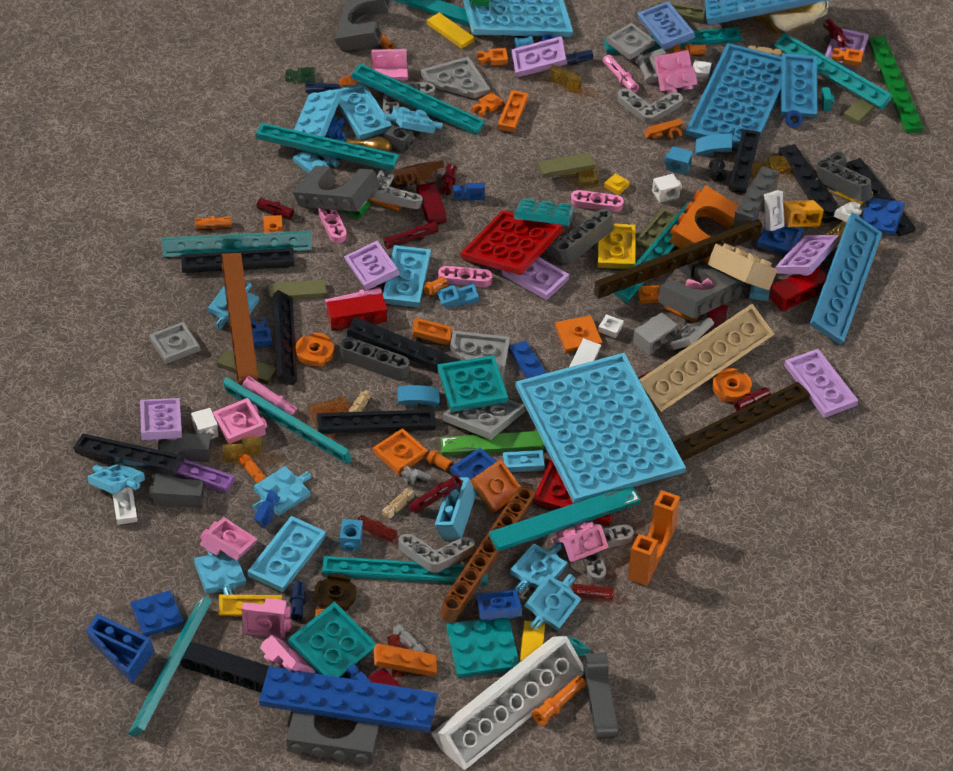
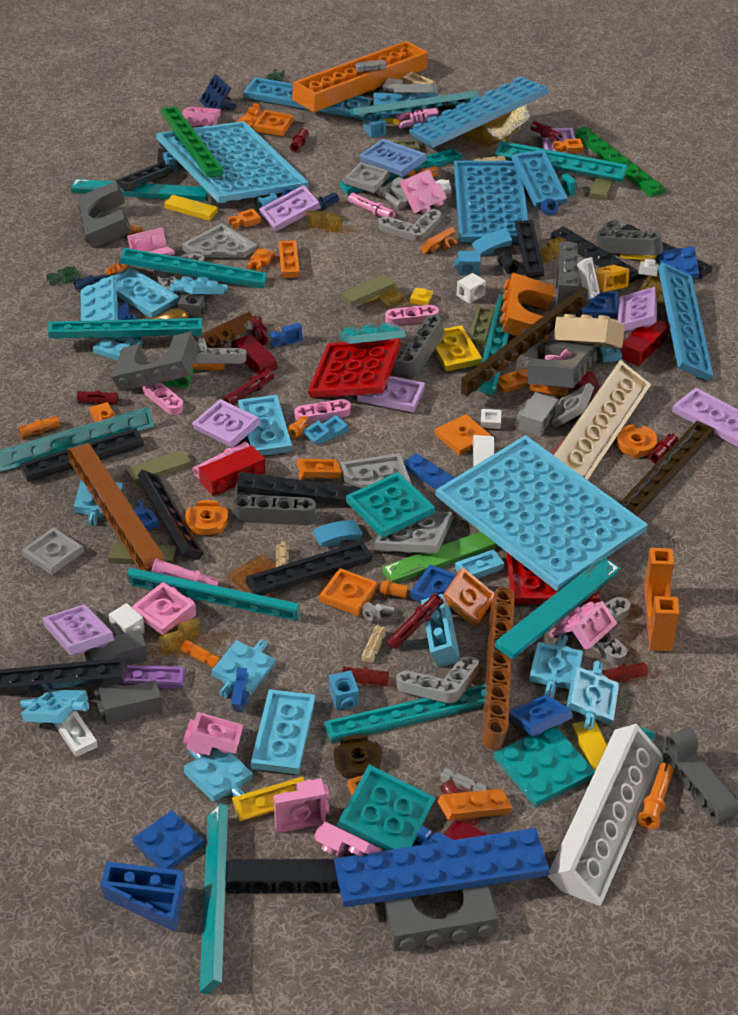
camera: 20 degrees left, 5 degrees down
(297, 600) = (319, 772): dark blue axle -> none

